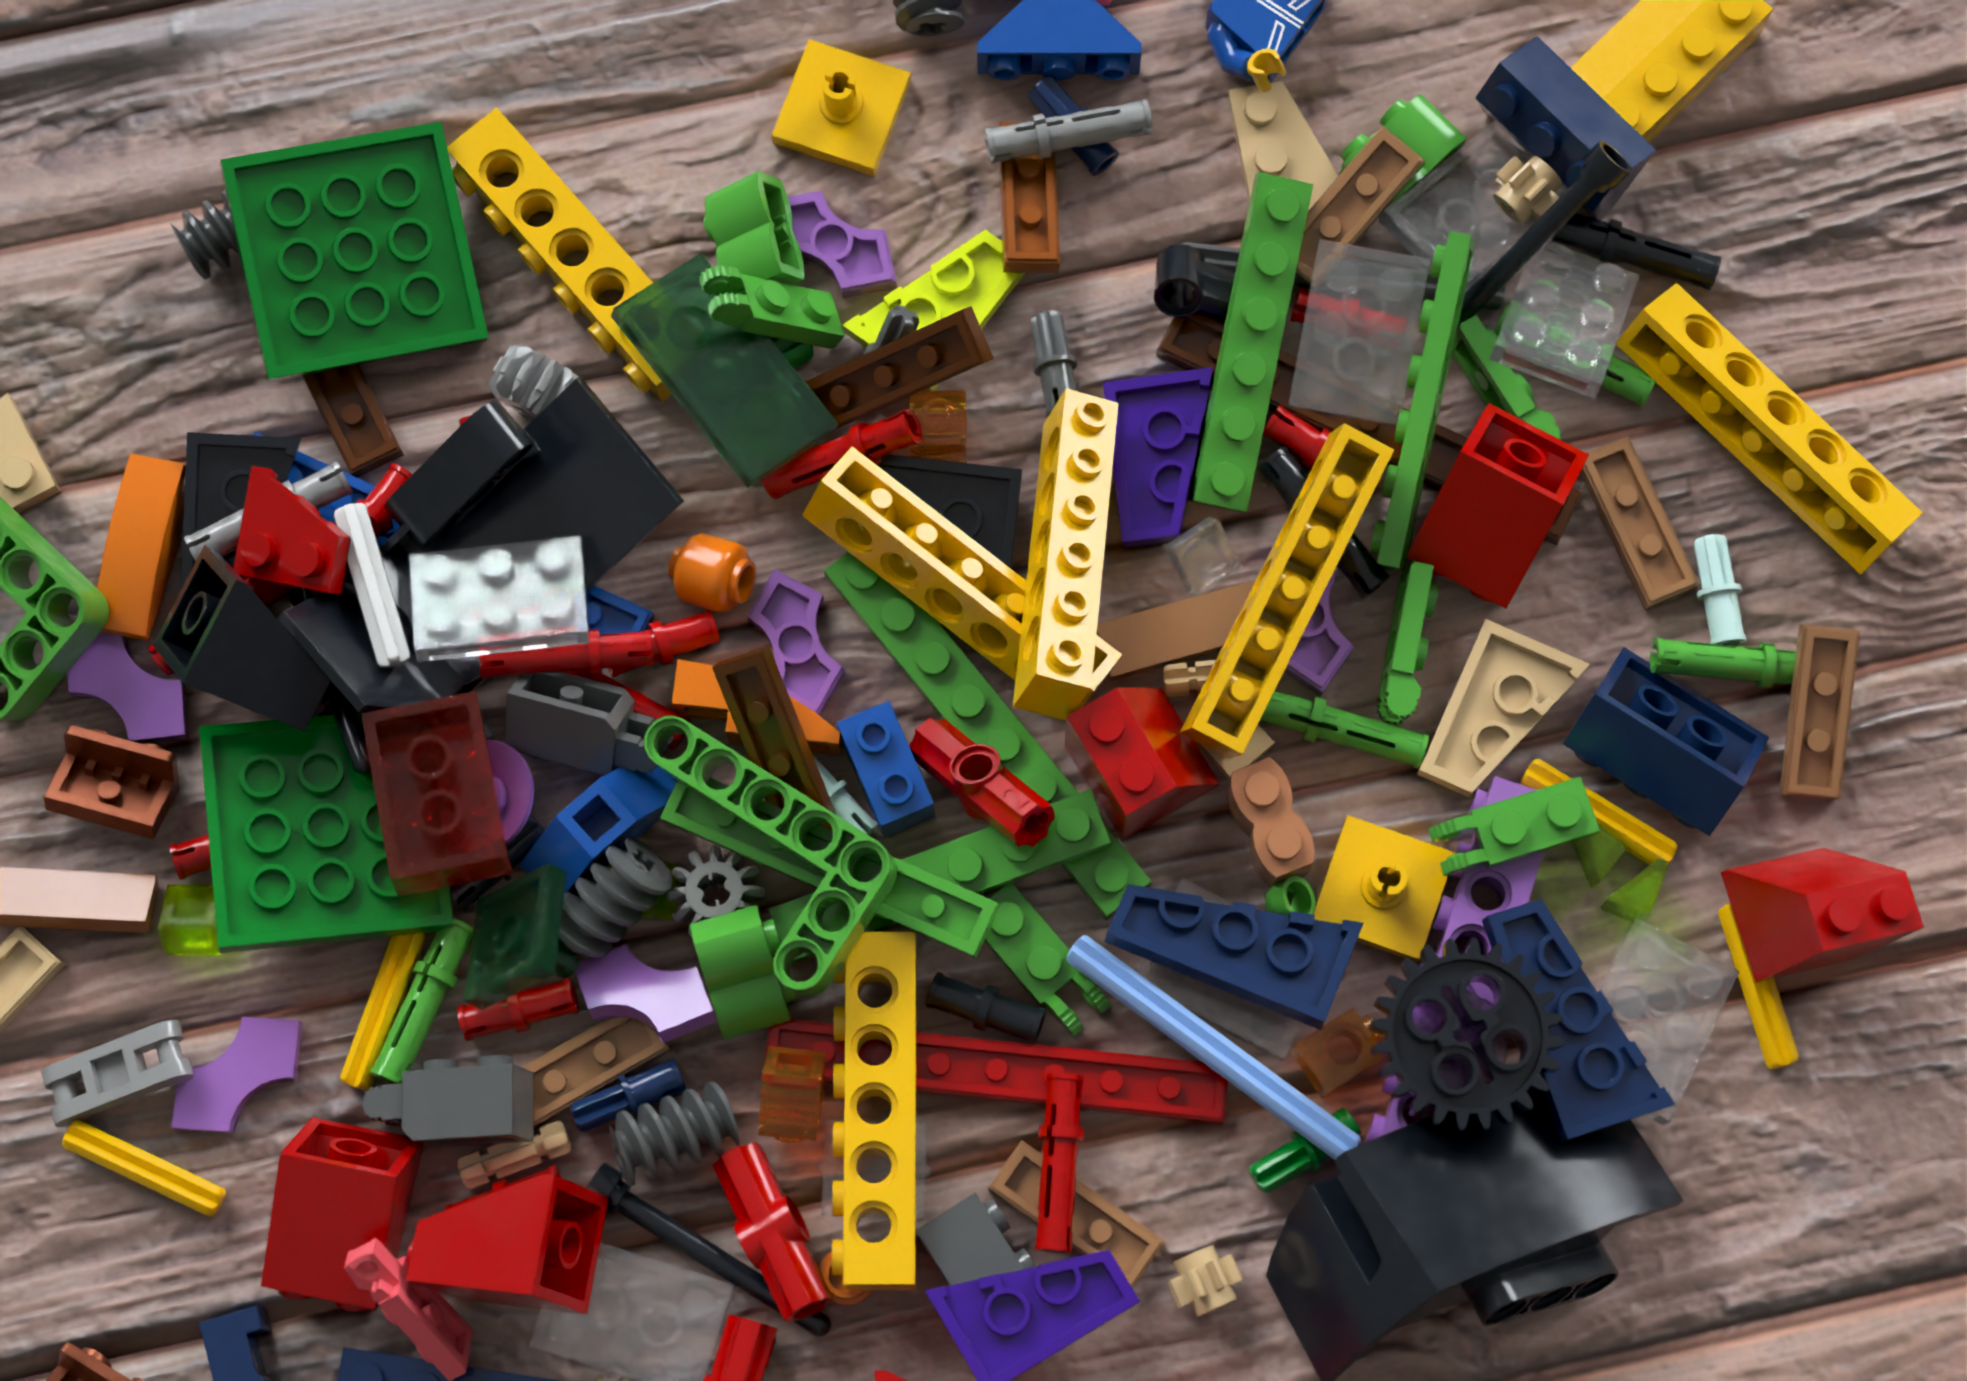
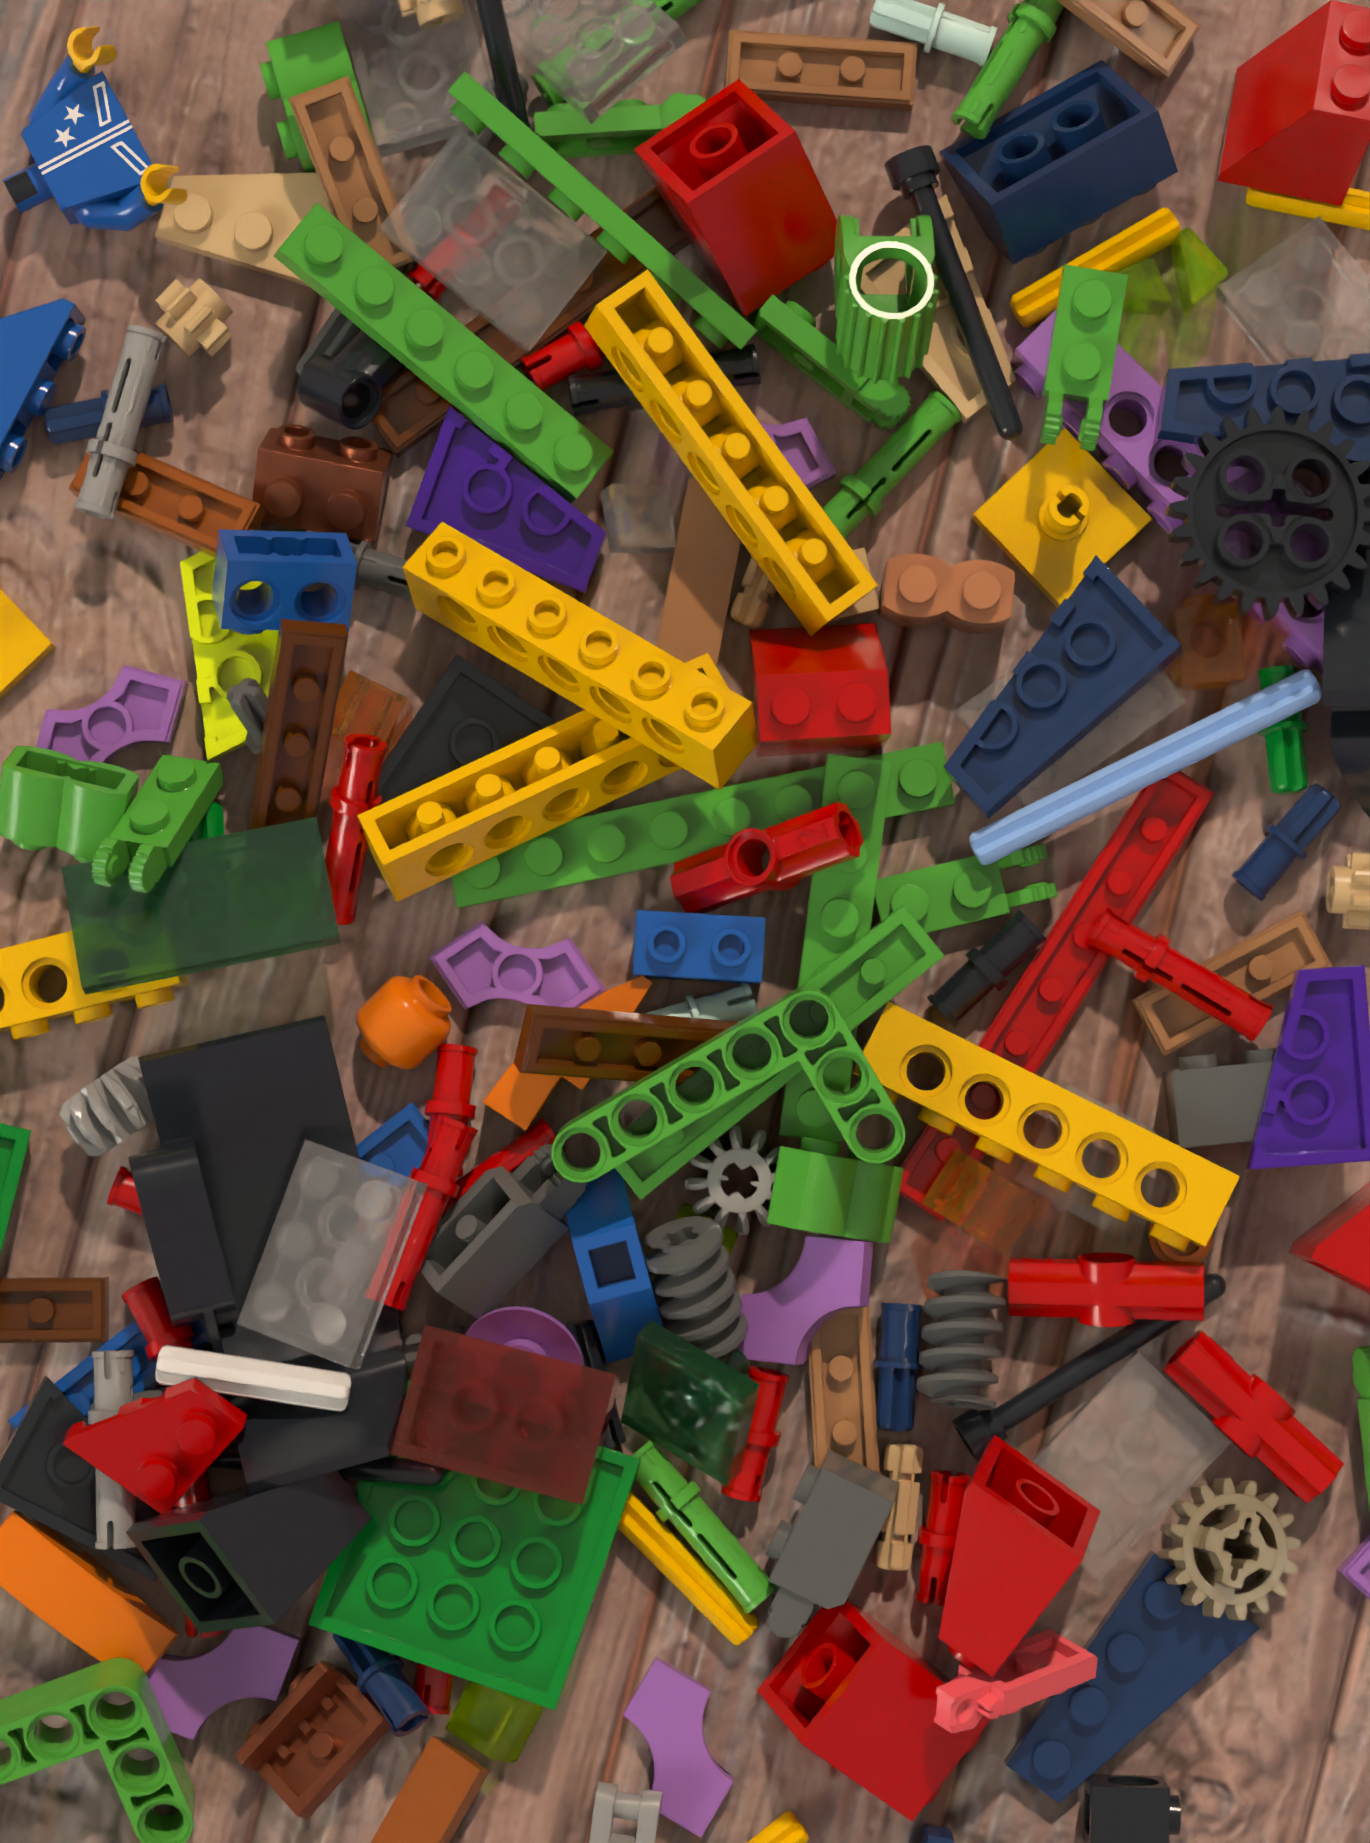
camera: 65 degrees left, 10 degrees up
(182, 812) = (387, 1685): none -> dark blue axle
(1019, 301) = (286, 566): none -> blue brick
(1104, 304) = (321, 481): none -> copper bracket
(1179, 147) = (194, 317): none -> tan gear
(1214, 1200) = (1287, 841): none -> dark blue axle
(1299, 897) = (1031, 614): bright green hinge -> none
(1448, 663) = (884, 332): none -> bright green piece
(1589, 630) = (915, 176): none -> black piece

